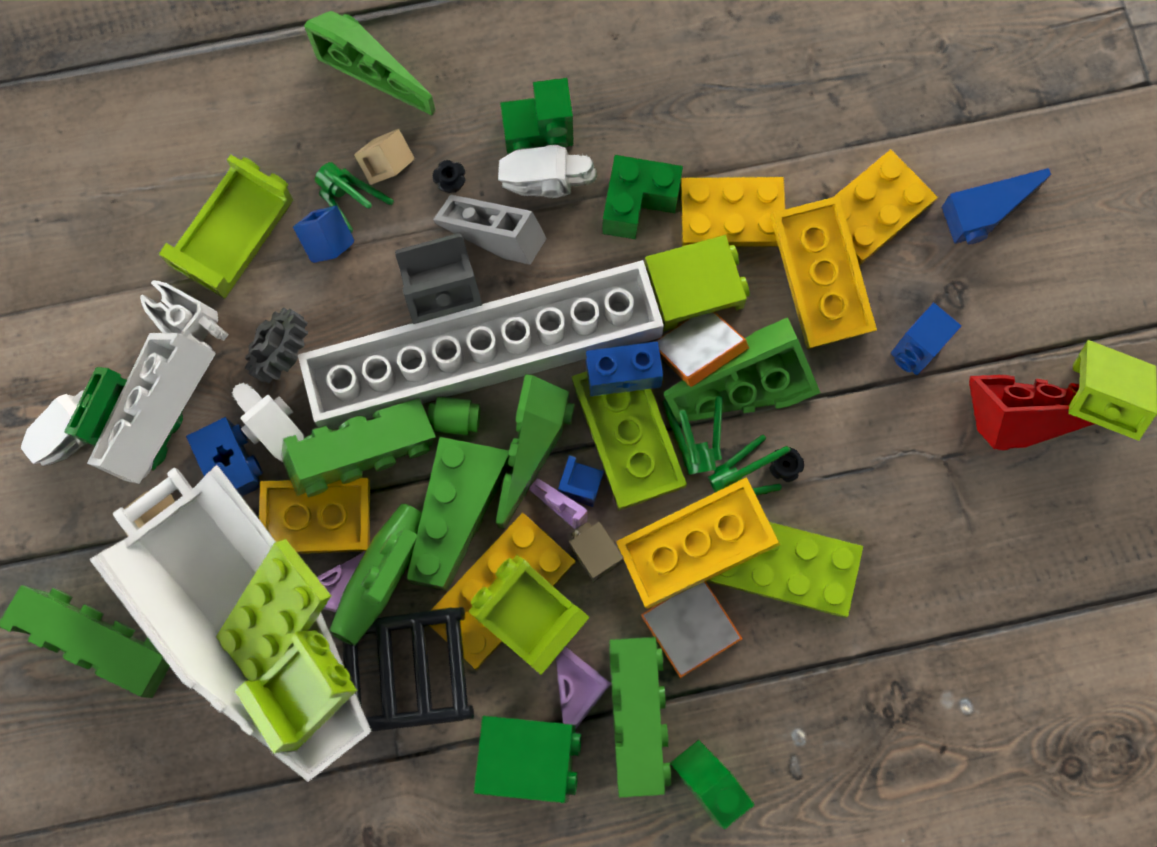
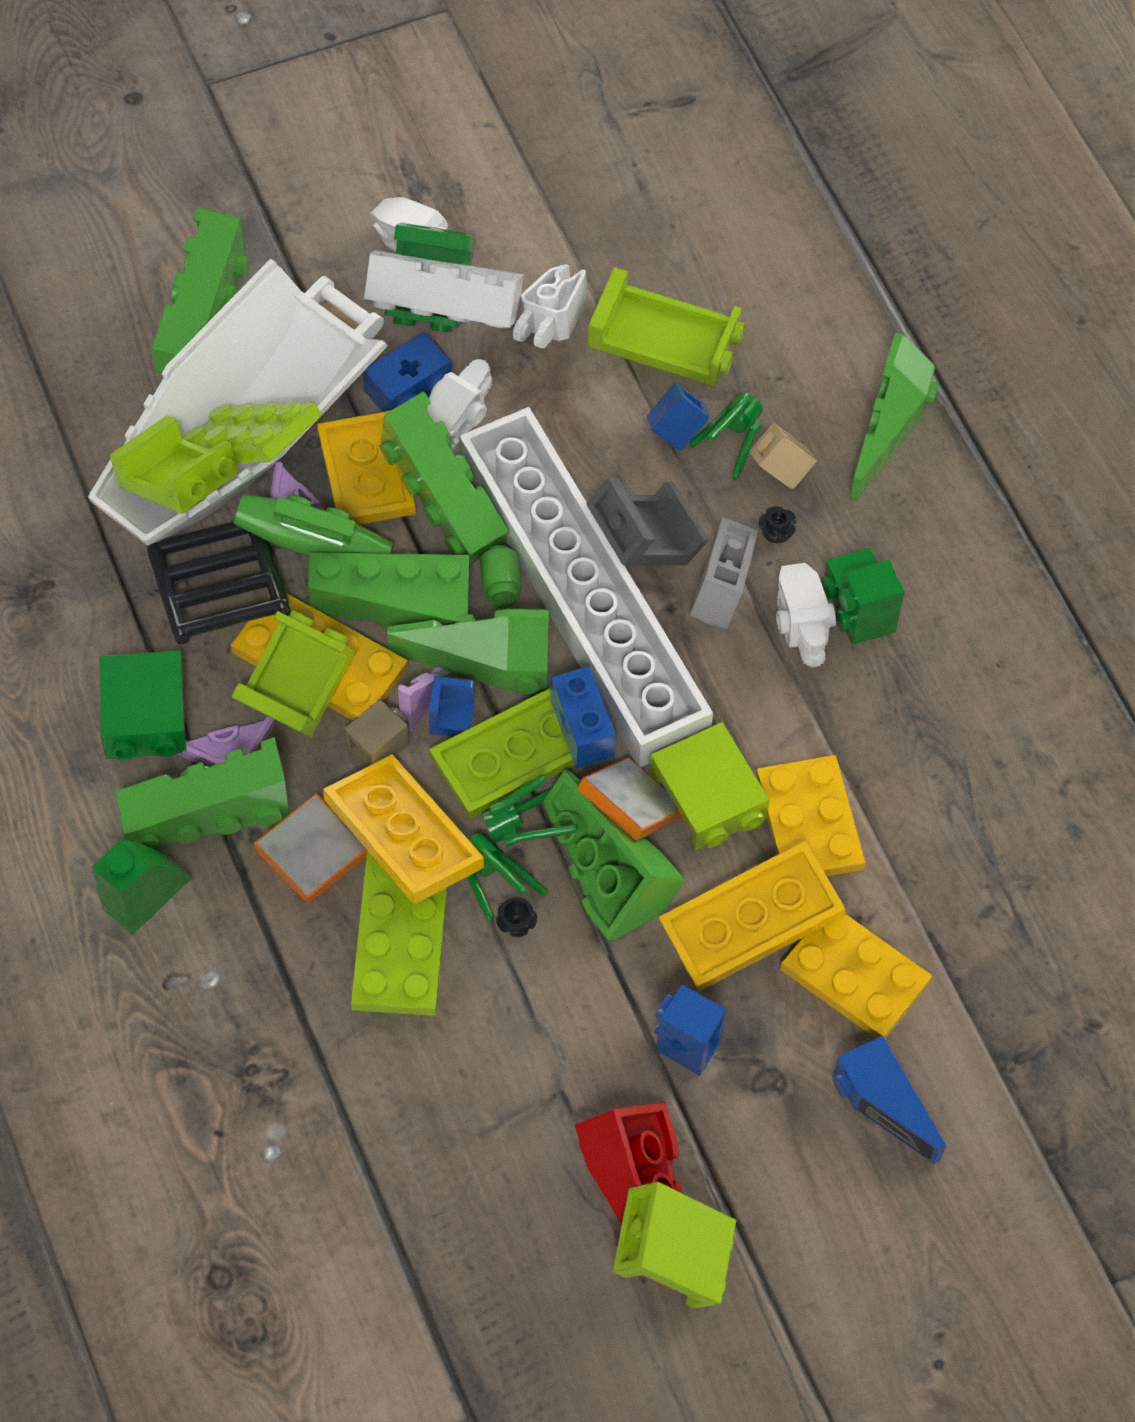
camera: 75 degrees right, 15 degrees down
(276, 345) = (539, 391): dark grey gear -> none
(635, 186) = (802, 701): green brick -> none

